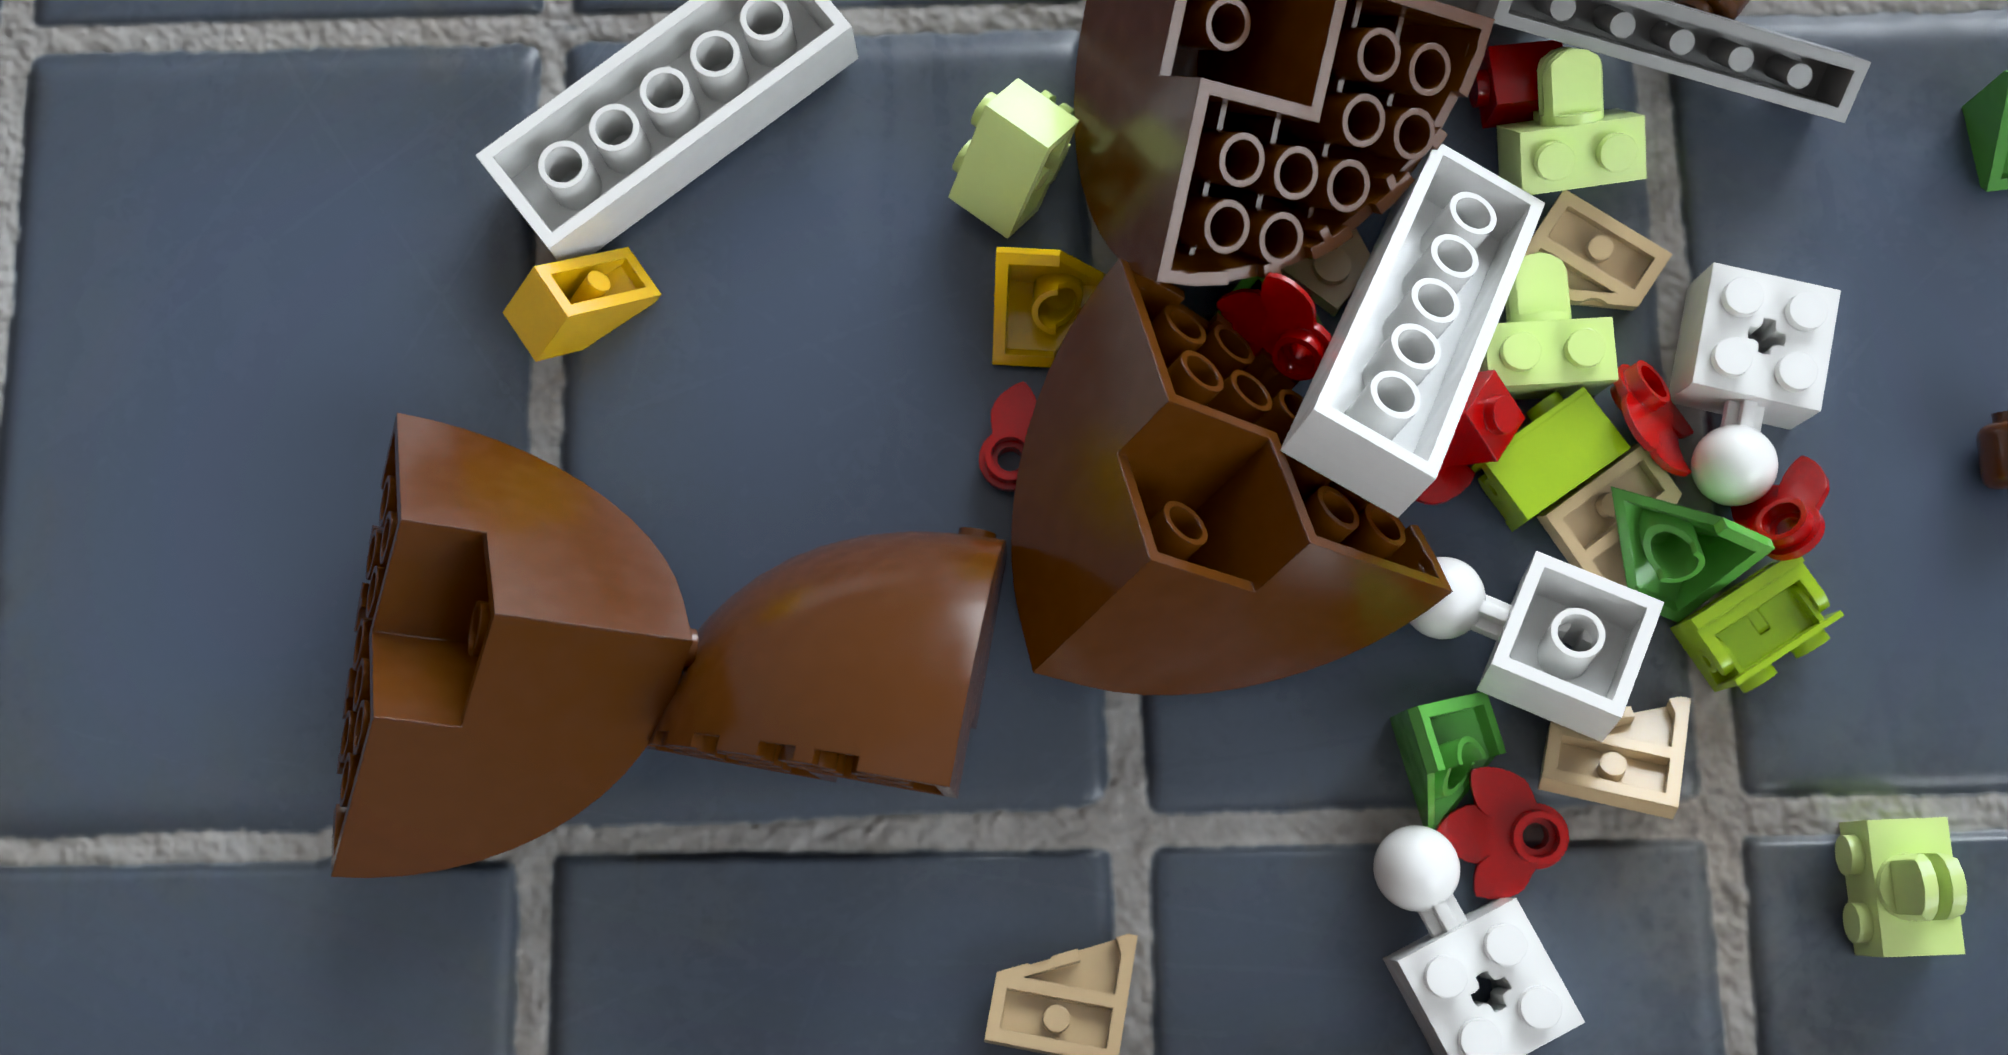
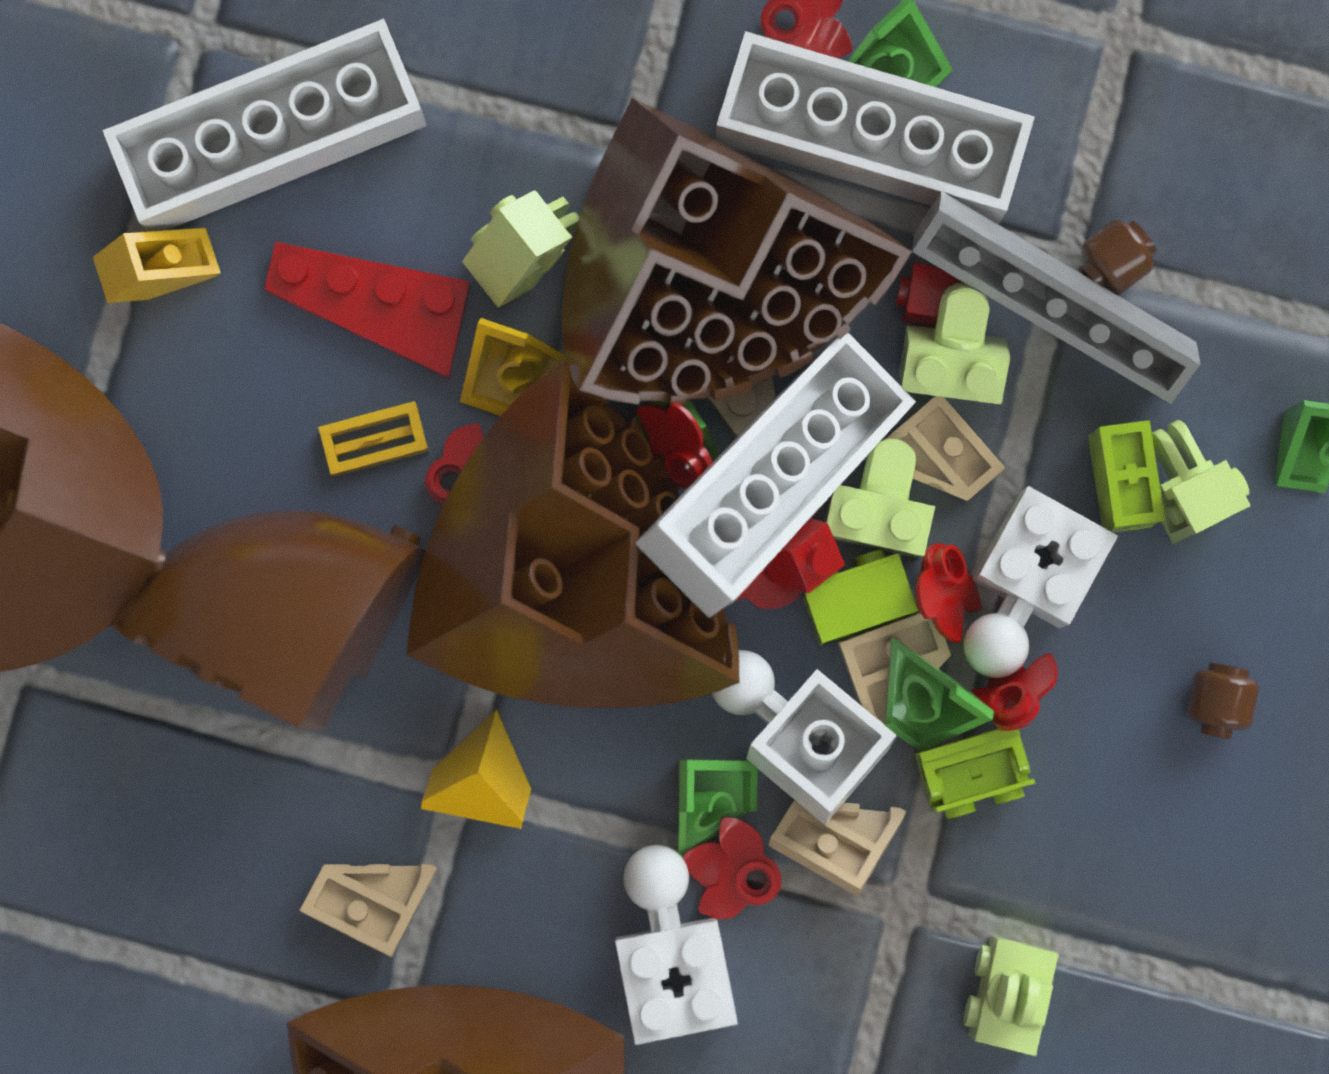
camera: 10 degrees right, 5 degrees up
(865, 274) = (390, 305): none -> red wing
(915, 456) = (367, 420): none -> yellow tile
(1157, 809) = (481, 778): none -> yellow slope
(1820, 221) = (1126, 476): none -> lime hinge
(1909, 215) = (1196, 489): none -> yellowish green brick

